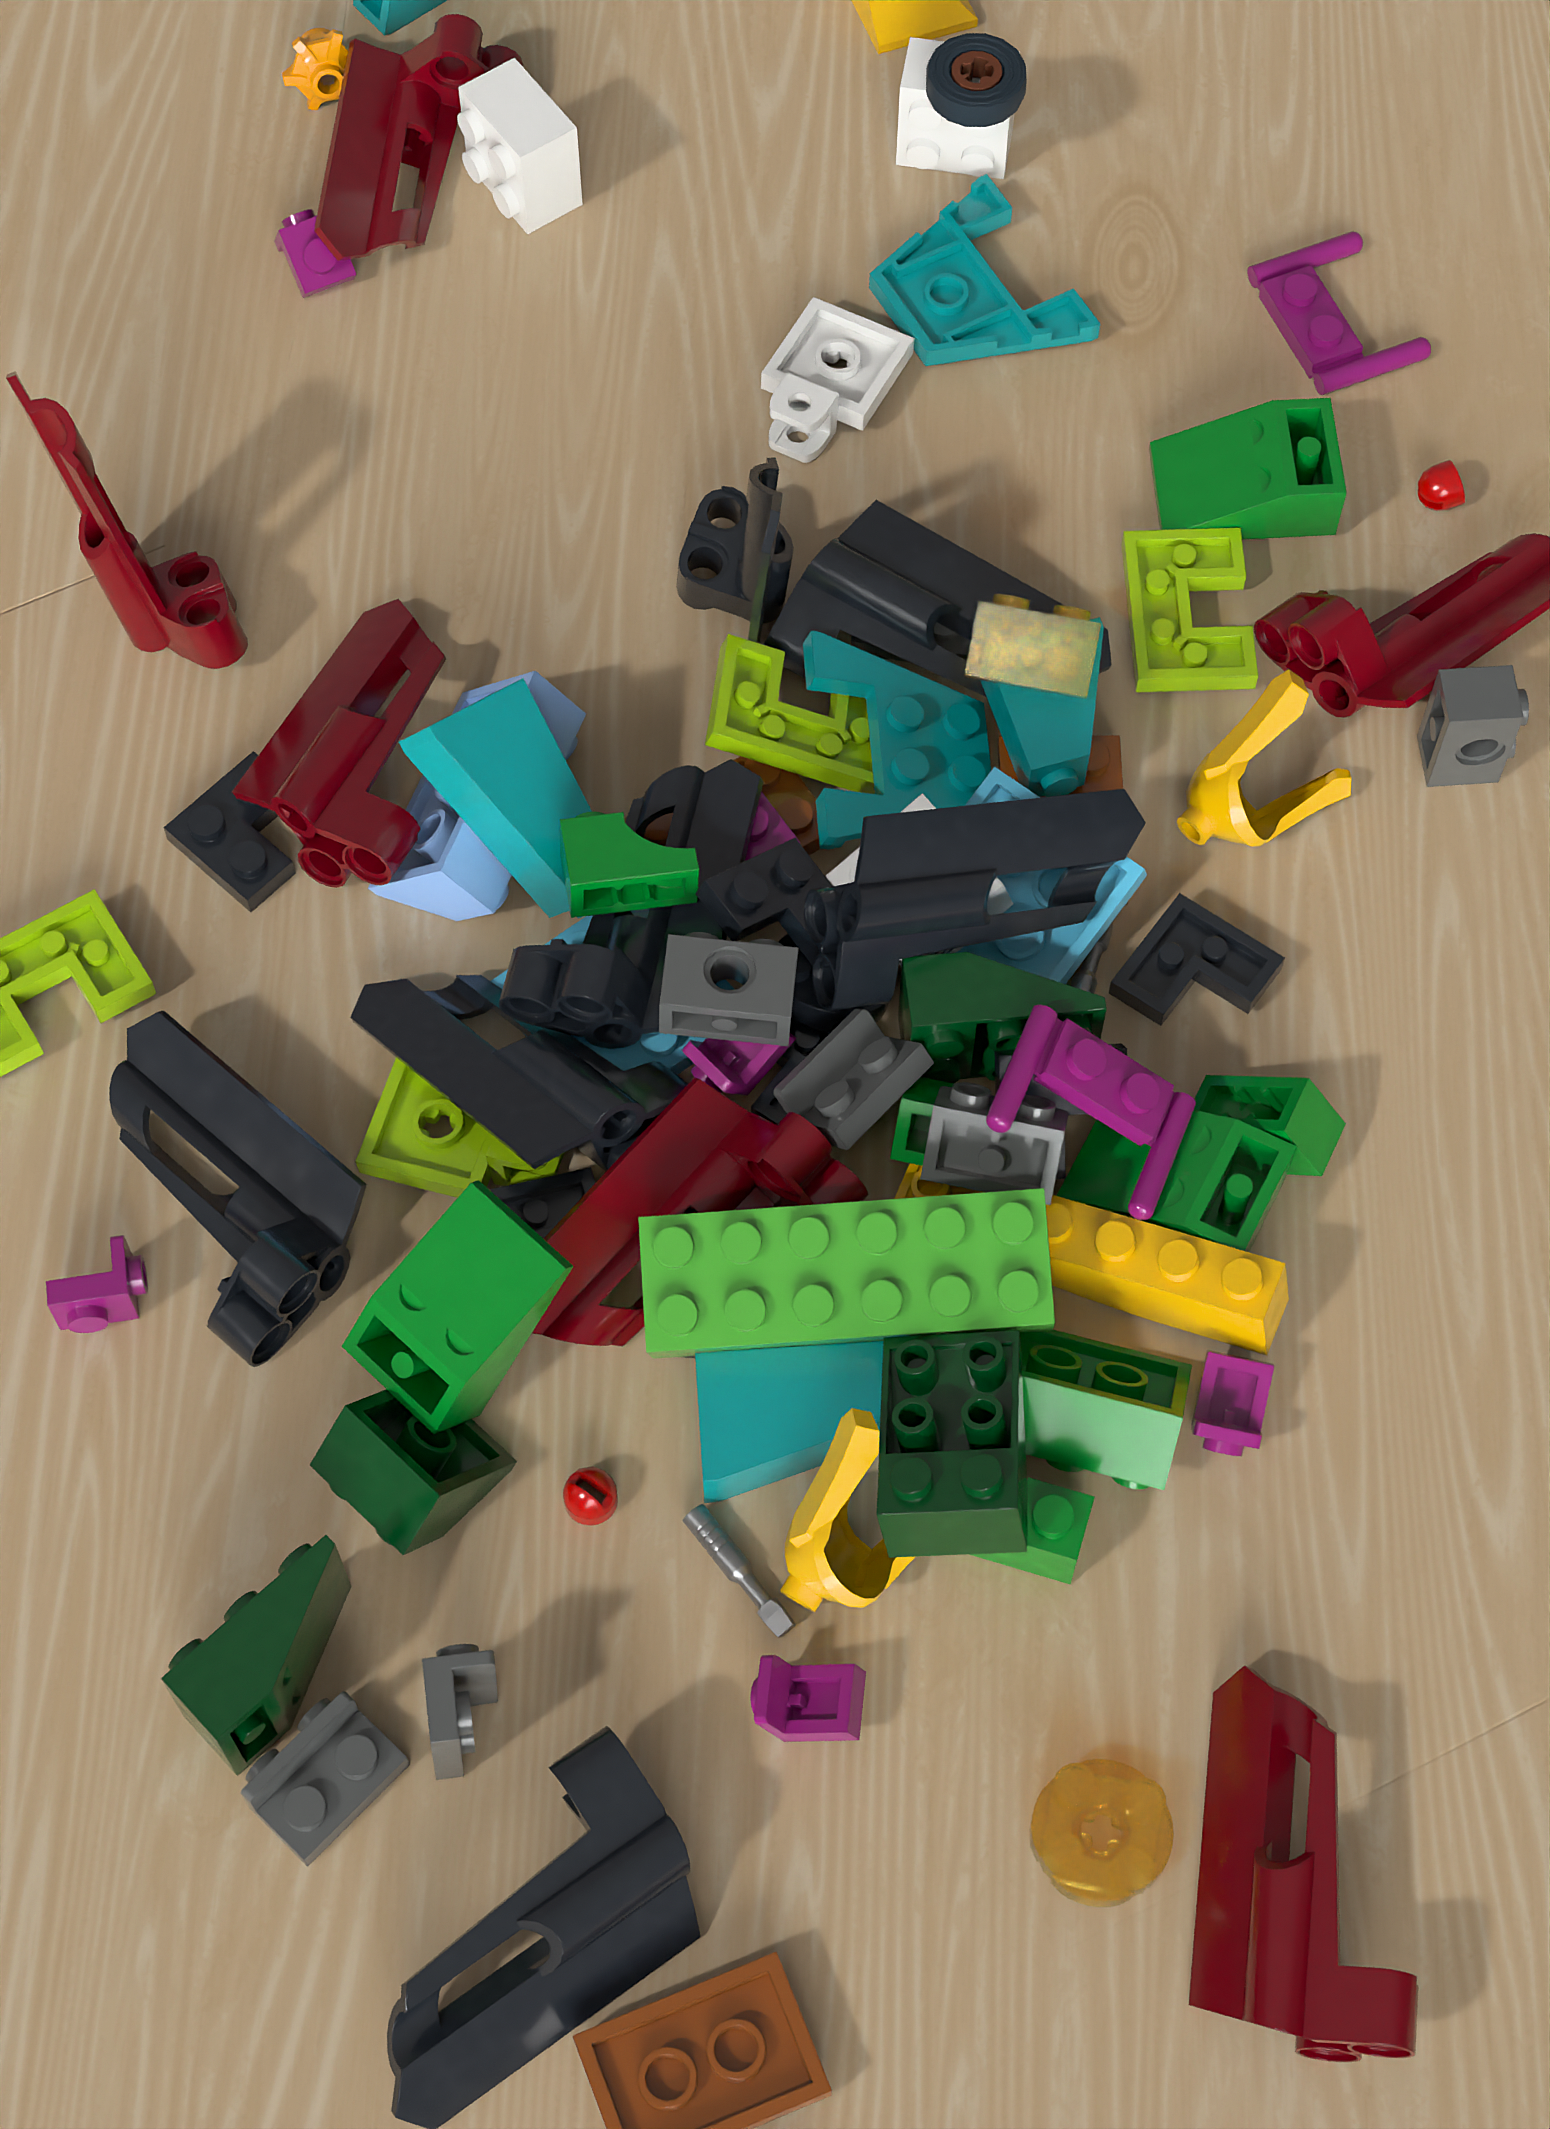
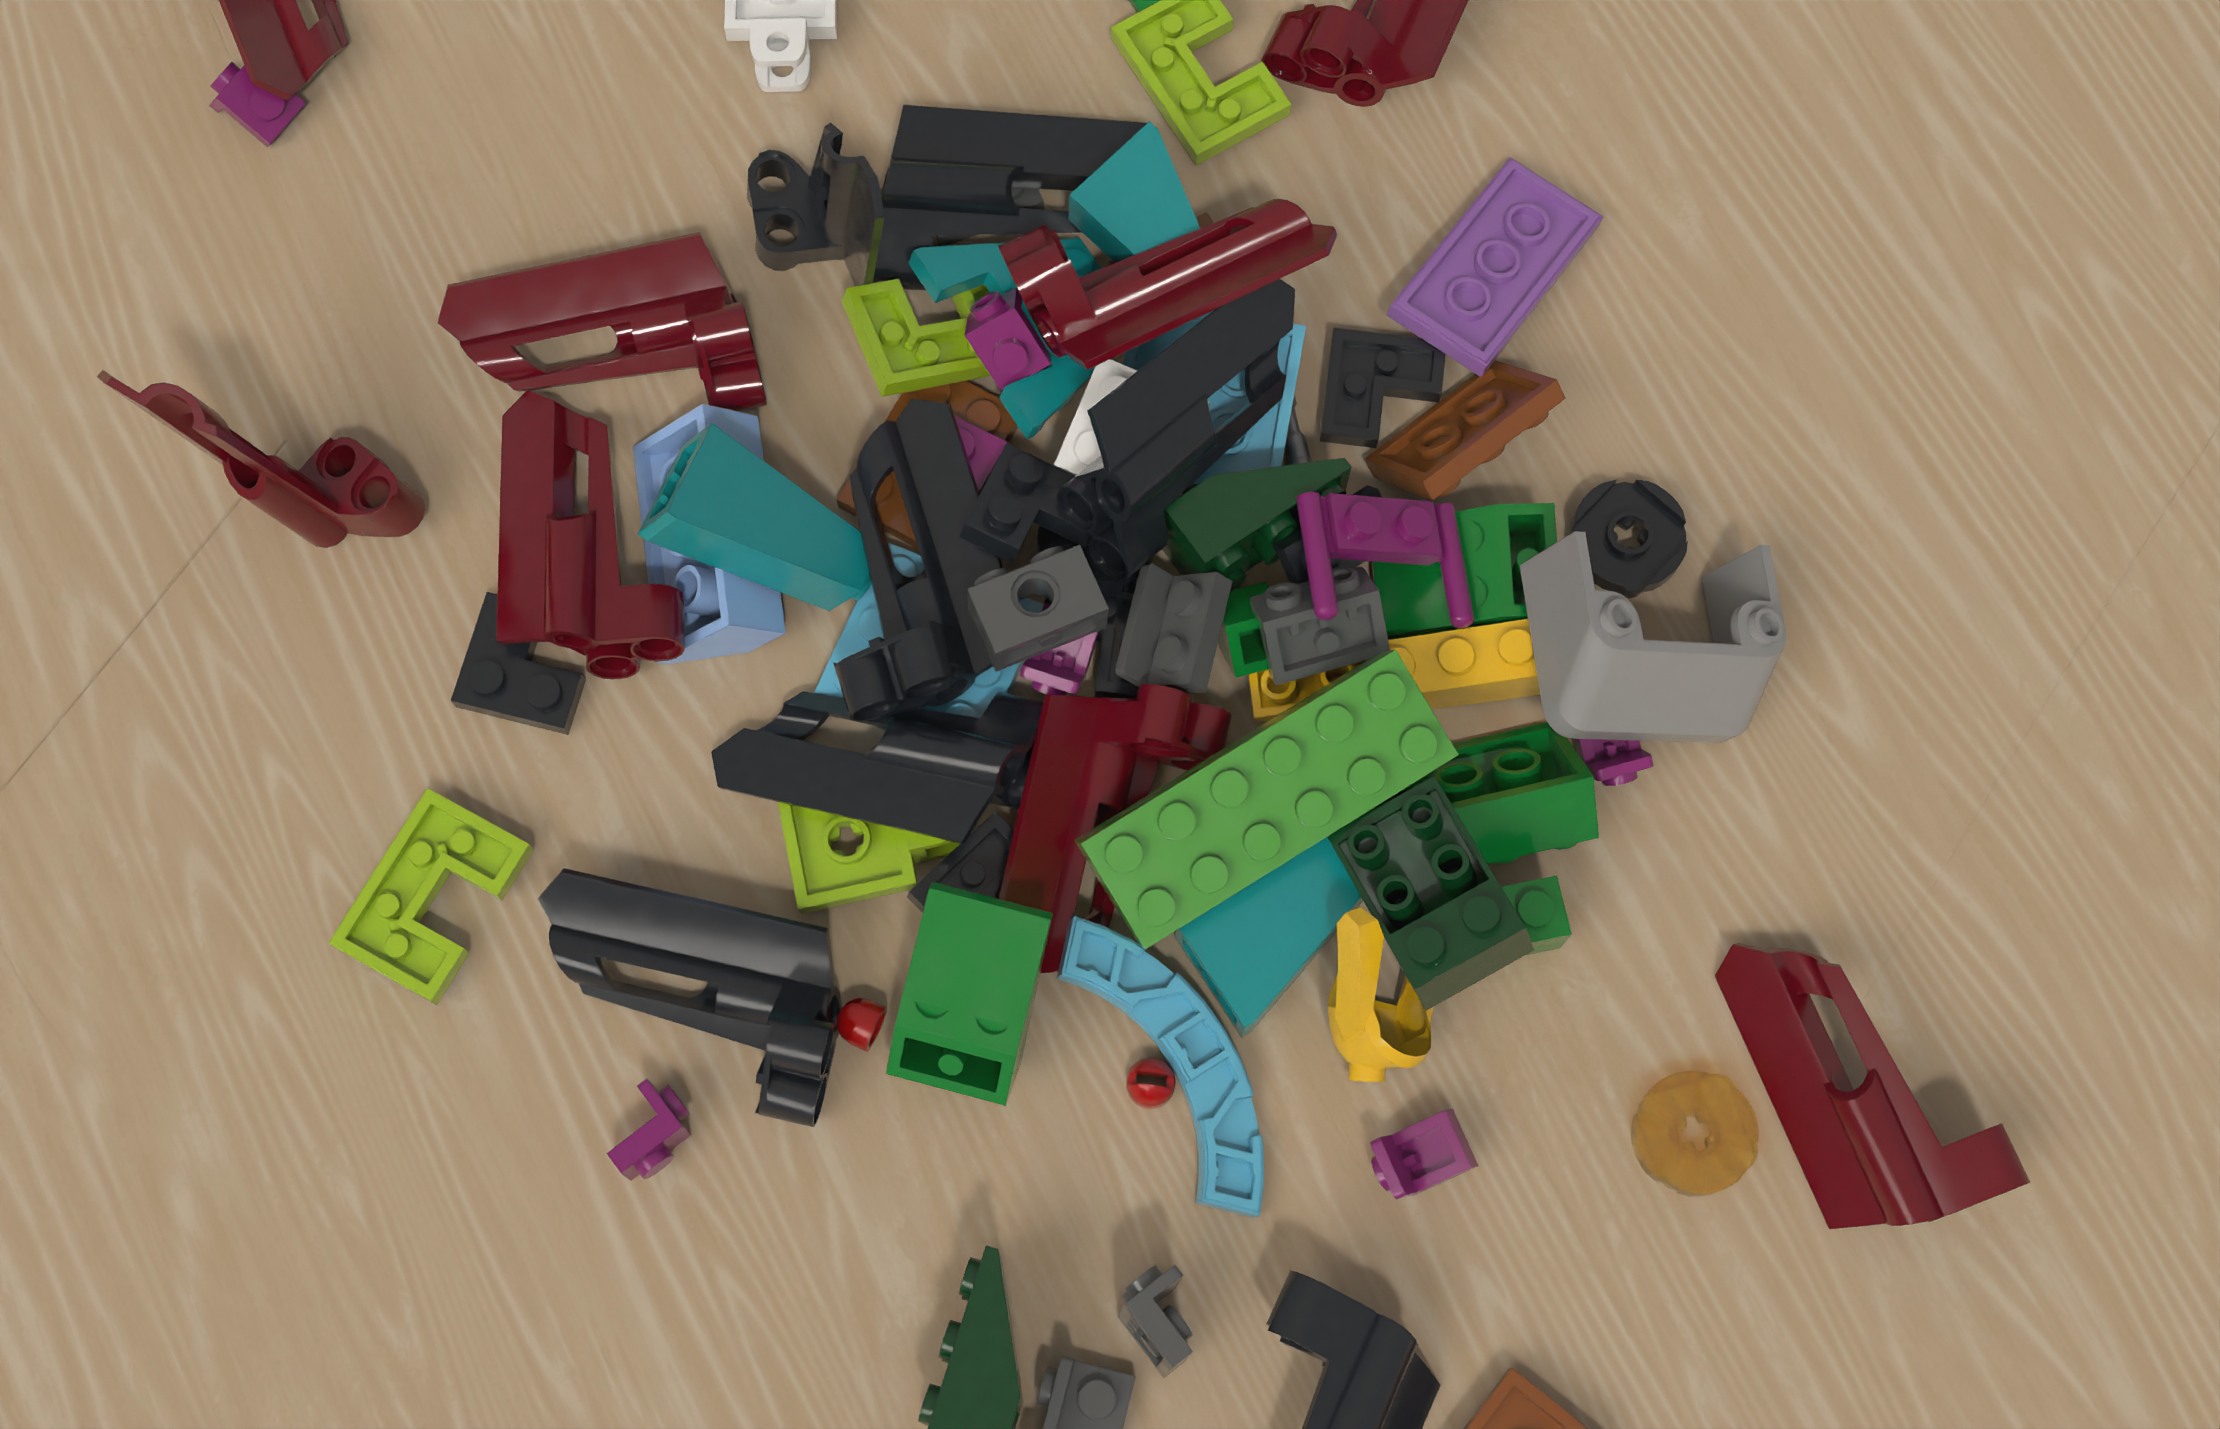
camera: 30 degrees left, 10 degrees up
(348, 1294) = (861, 1022): none -> red hinge
(403, 1474) = (998, 1150): dark green slope -> none
(559, 569) = (655, 295): none -> dark red panel
(618, 870) = (882, 550): green arch -> none
(649, 1483) = (1195, 1048): none -> medium azure tile
(737, 1568) = (1301, 1078): flat silver piece -> none
(850, 747) = (1005, 338): none -> magenta bracket
(946, 759) = (1161, 287): none -> dark red panel
(1033, 647) = (1118, 178): clear yellow bracket -> none
(1215, 790) = (1320, 195): yellow piece -> none
(1253, 1044) = (1465, 430): none -> dark orange plate
(1282, 1107) = (1518, 477): green arch -> none
(1294, 1366) = (1615, 685): none -> light grey windscreen
(1349, 1259) = (1661, 536): none -> black plate
(1375, 914) = (1494, 267): none -> medium lavender tile
(1471, 725) = (1489, 66): dark grey brick -> none

